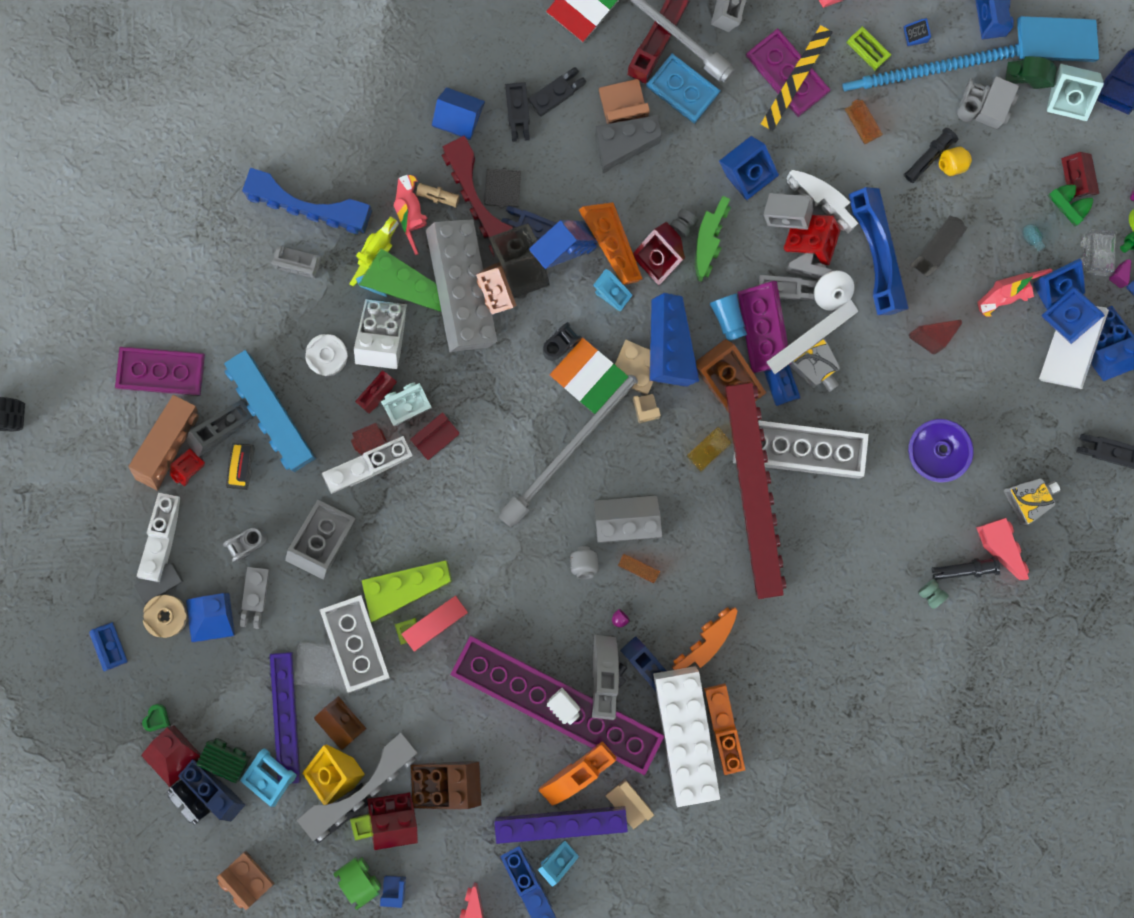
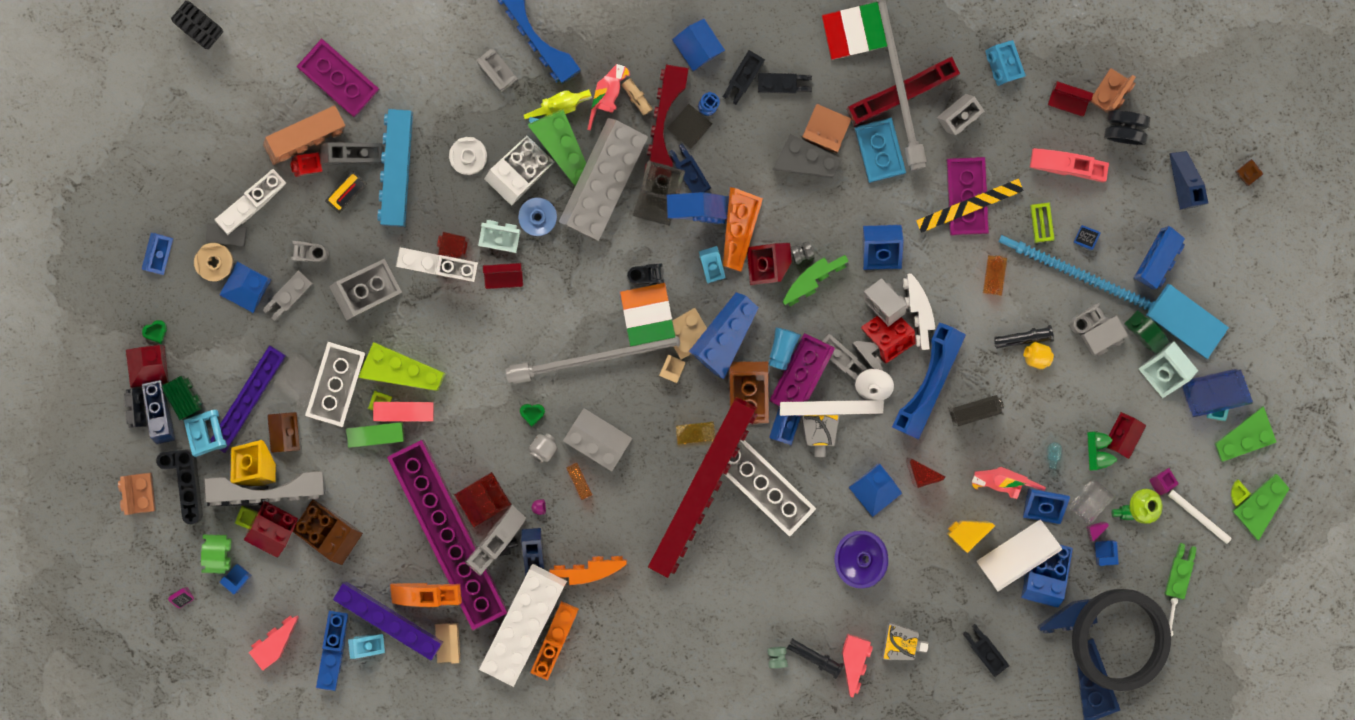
camera: 45 degrees right, 5 degrees up
(282, 841) = (184, 487): none -> black beam
(376, 392) = (484, 211): dark red plate -> none
(425, 663) = (375, 434): none -> bright green slope
(427, 351) = (528, 212): none -> medium blue dish
(495, 289) = (624, 202): bracket -> none
(505, 154) = (705, 106): none -> blue wheel
(552, 539) = (531, 413): none -> green tile
(564, 707) = (450, 539): white brick -> none
(565, 649) = (482, 499): none -> clear red slope
(903, 381) = (875, 489): none -> blue slope
(1017, 358) = (969, 533): none -> yellow slope
(1072, 315) = (1034, 533): blue tile -> none

